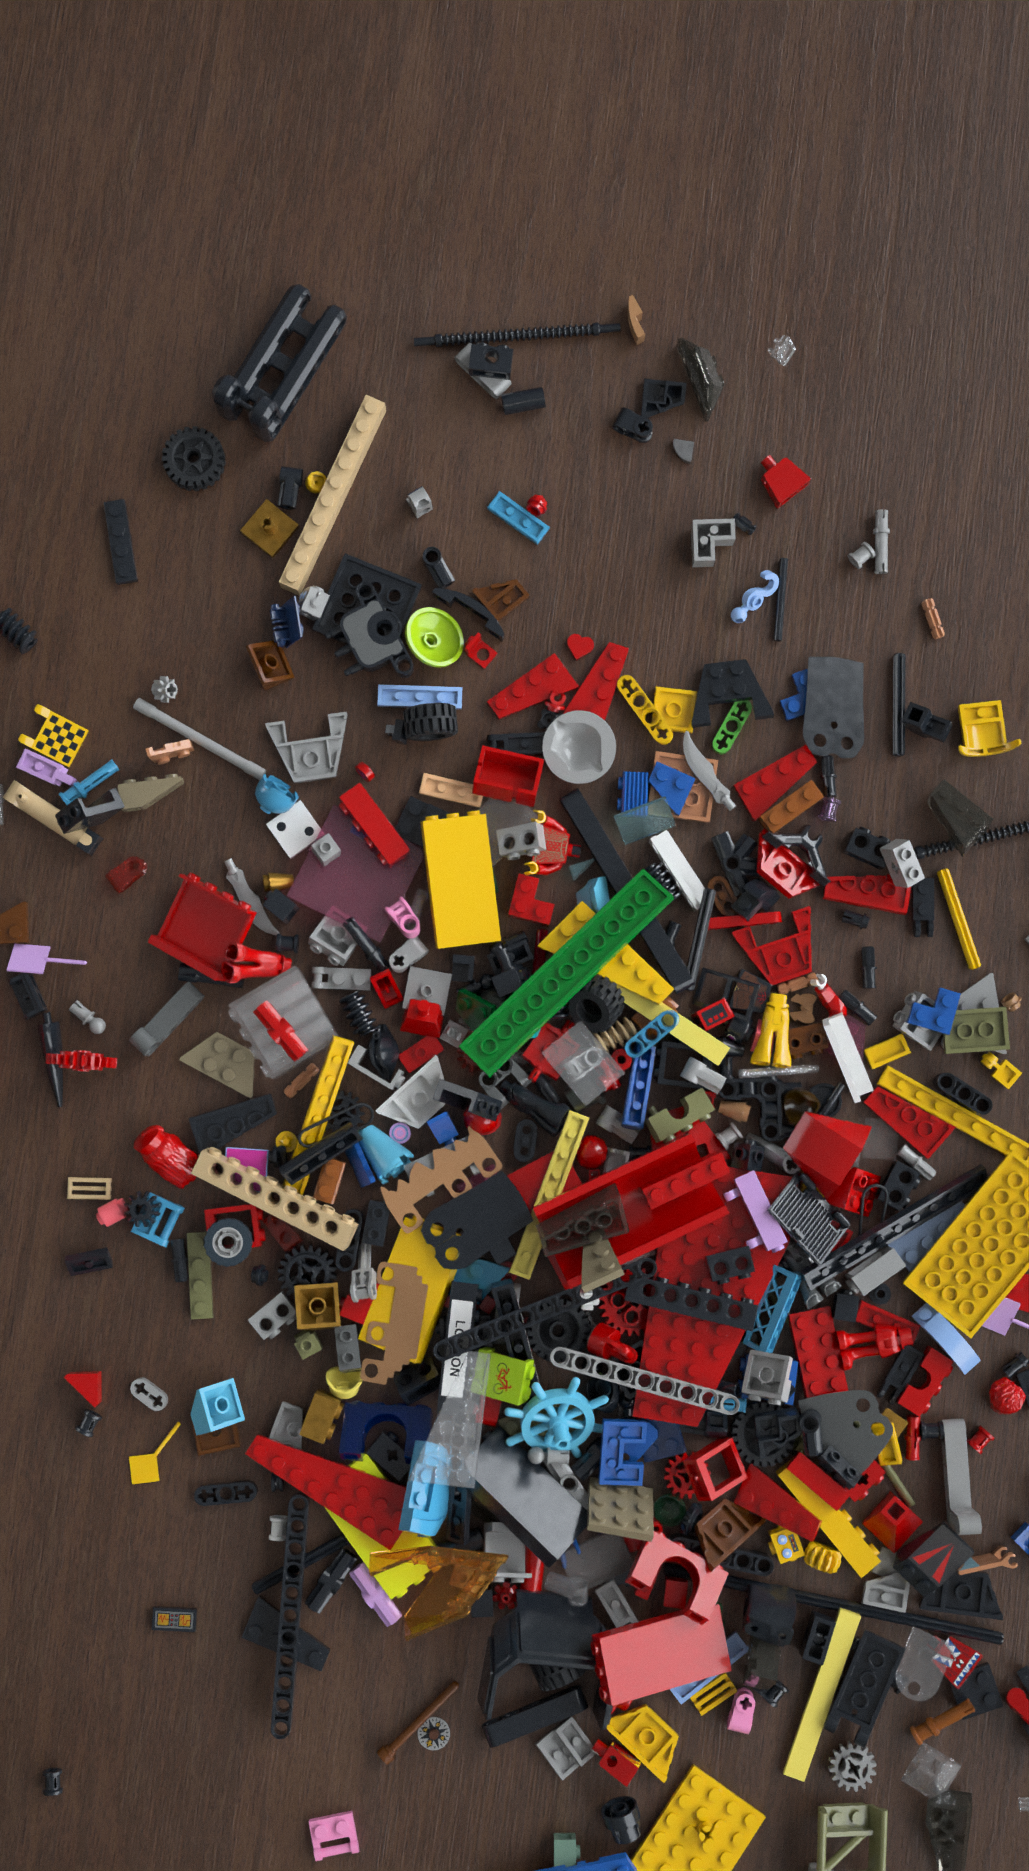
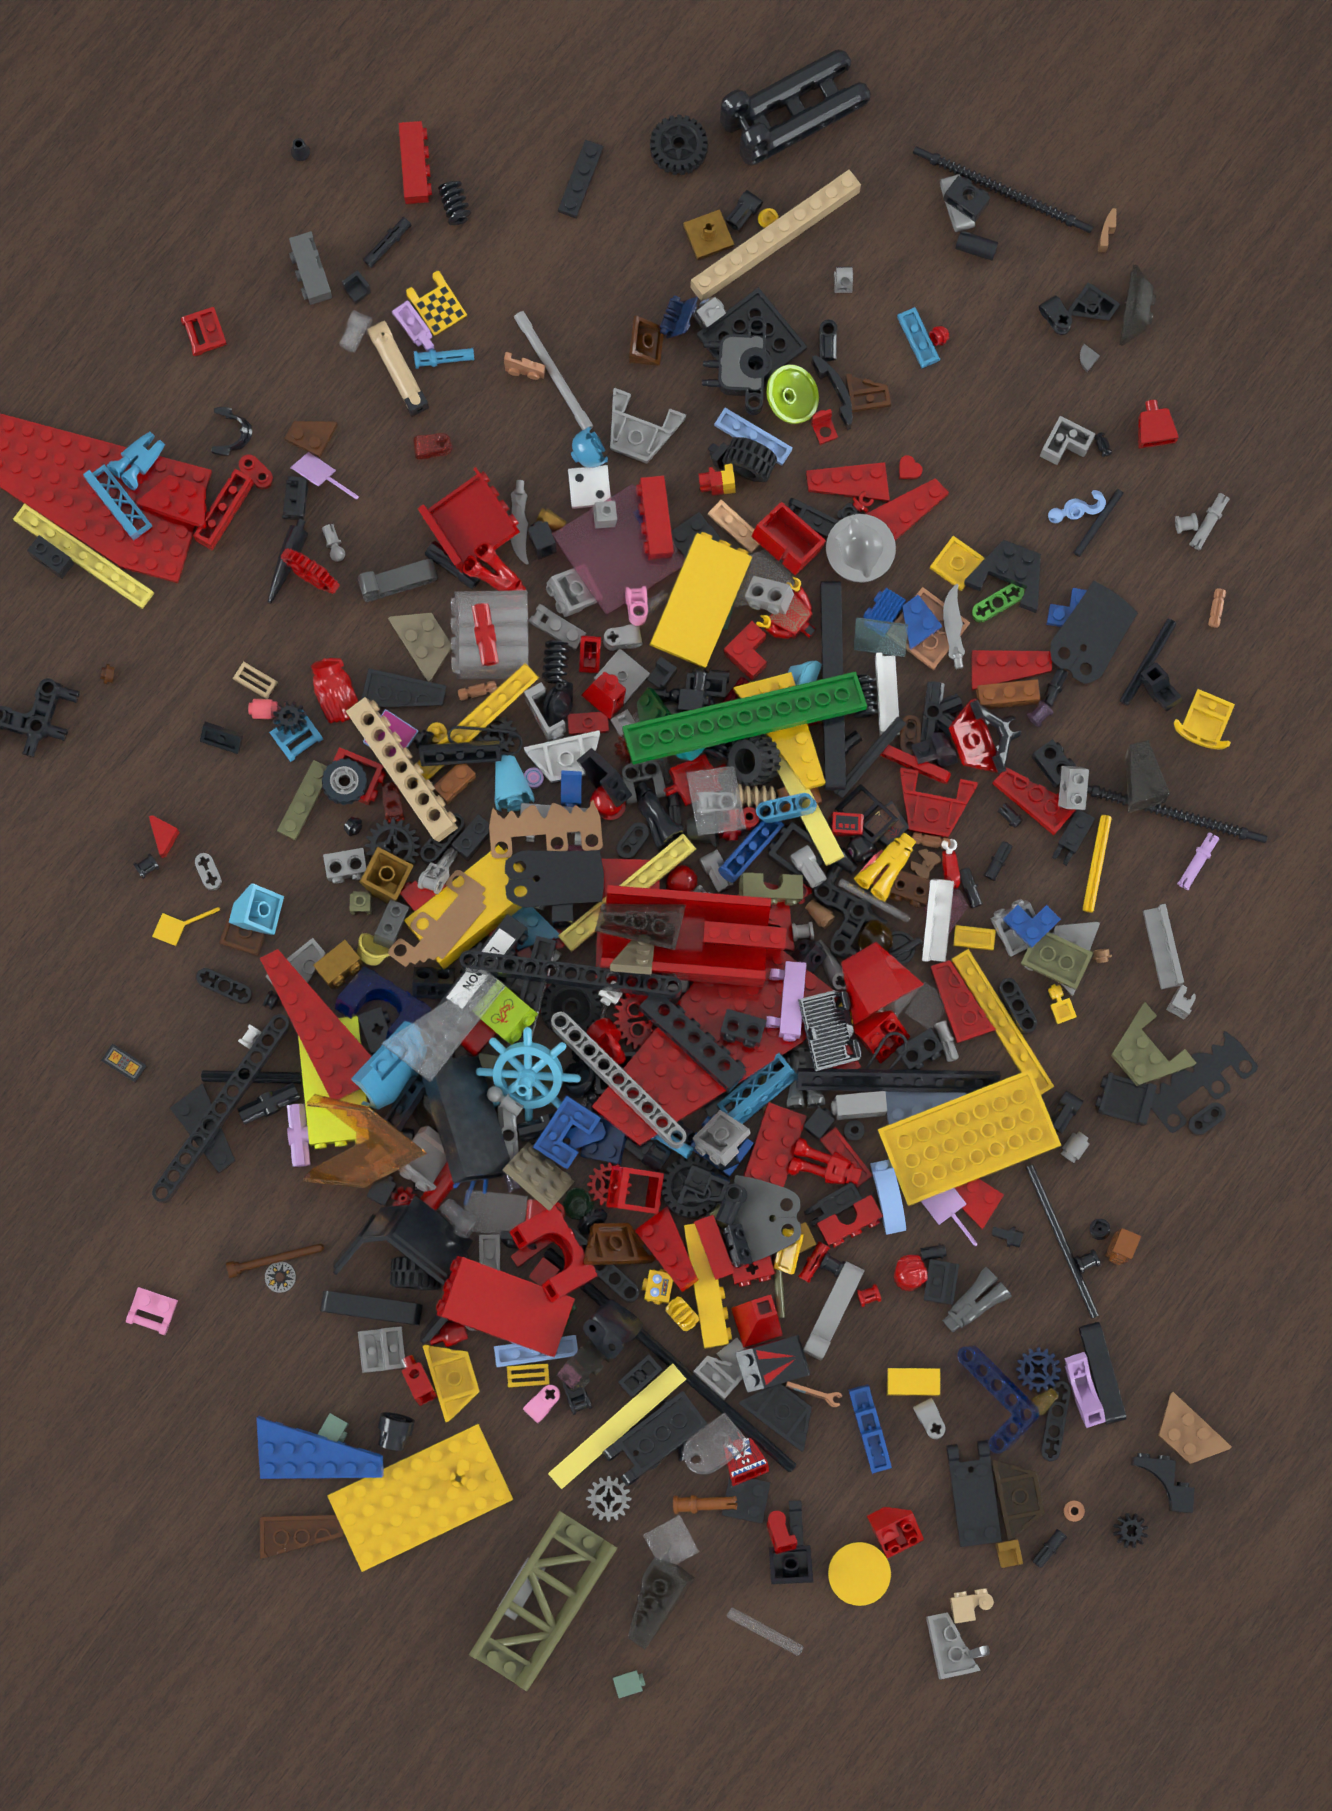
camera: 30 degrees right, 5 degrees down
(77, 816) = (421, 377): black panel -> none
(143, 794) = (481, 390): dark tan slope -> none
(164, 689) = (548, 315): light grey gear -> none
(179, 1260) = (295, 778): black axle -> none
(287, 943) = (530, 574): black bush -> none
(359, 1165) = (485, 783): blue slope -> none
(364, 771) = (673, 471): red tile -> none
(371, 951) = (595, 618): black pin -> none
(413, 759) = (718, 482): none -> red hips
(579, 868) = (804, 647): clear light blue piece -> none
(647, 708) = (935, 548): yellow beam -> none
(783, 350) = (1216, 322): clear tile -> none

